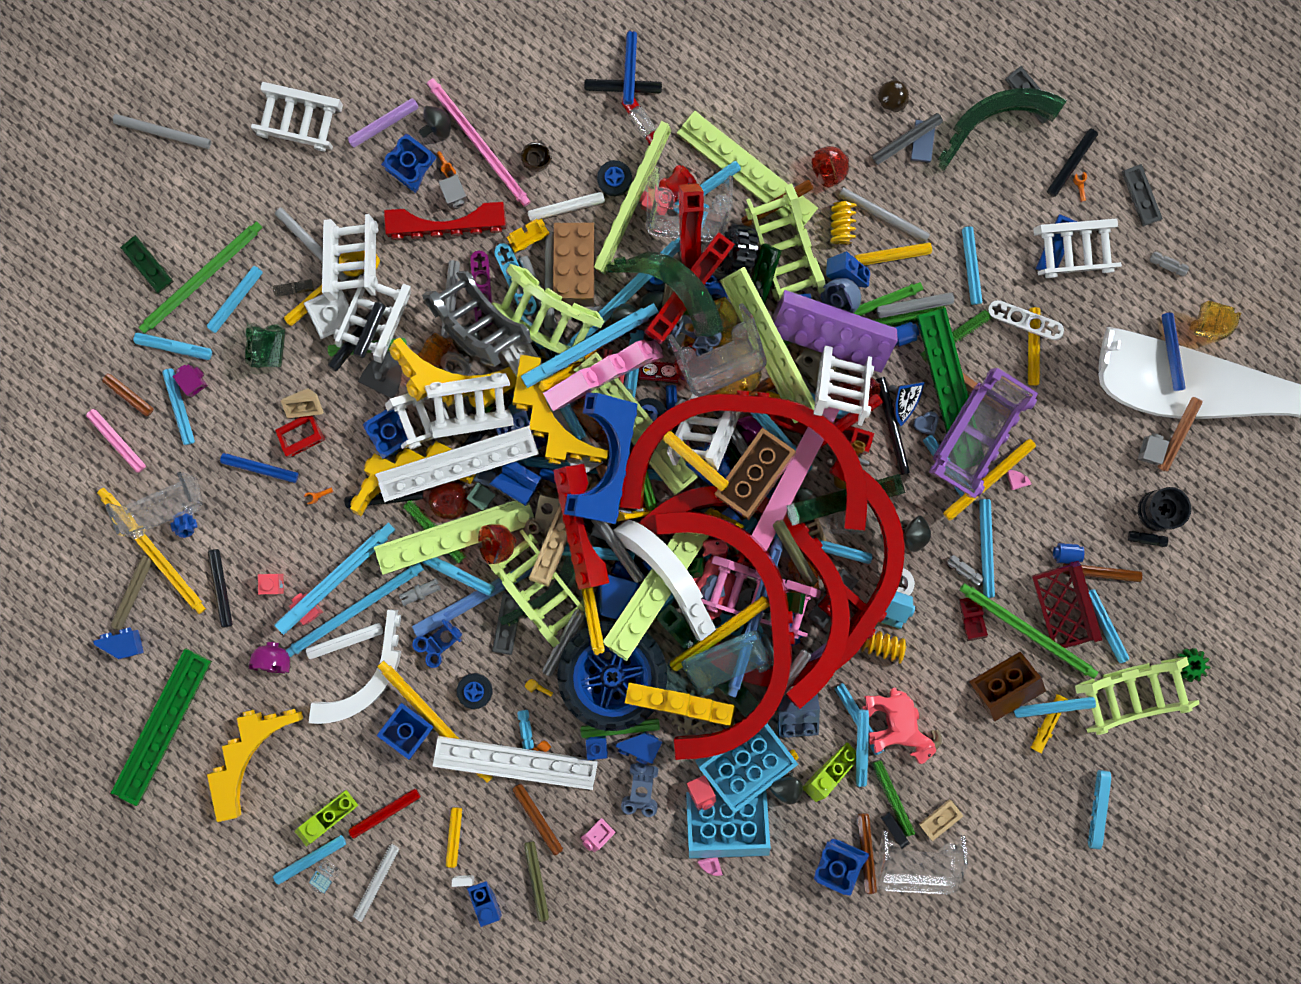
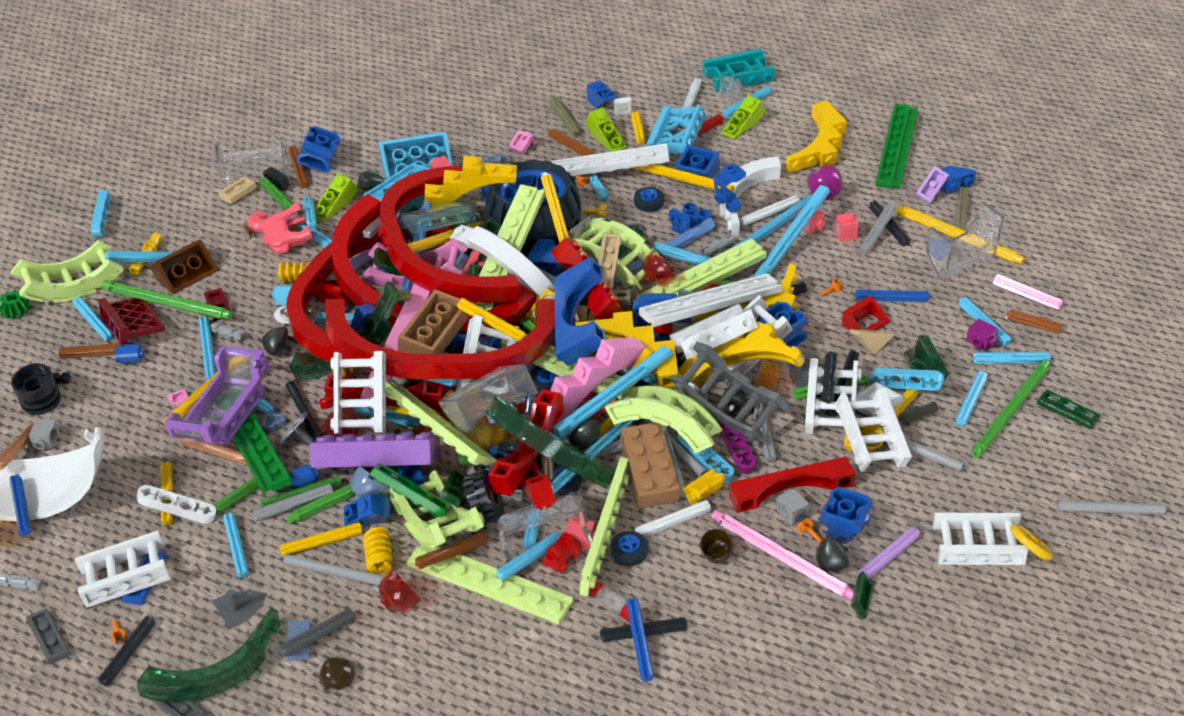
camera: 170 degrees right, 45 degrees down
(151, 634) = (931, 185): none -> lavender slope
(235, 576) = (878, 227): none -> light grey axle
(254, 94) = (1031, 542): none -> yellow plate
(291, 325) = (933, 378): none -> medium azure beam
(304, 941) = (750, 61): none -> teal fence
(384, 647) = (729, 174): none -> blue piece
(418, 835) = (677, 117): none -> medium azure fence
(423, 77) = (862, 595): none -> dark green tile
(495, 831) = (604, 130): none -> lime slope
(706, 278) = (508, 446): none -> black axle
(809, 268) = (405, 487): none -> green plate
(823, 525) = (361, 316): none -> blue slope
(972, 194) = (238, 606): none -> dark grey shield

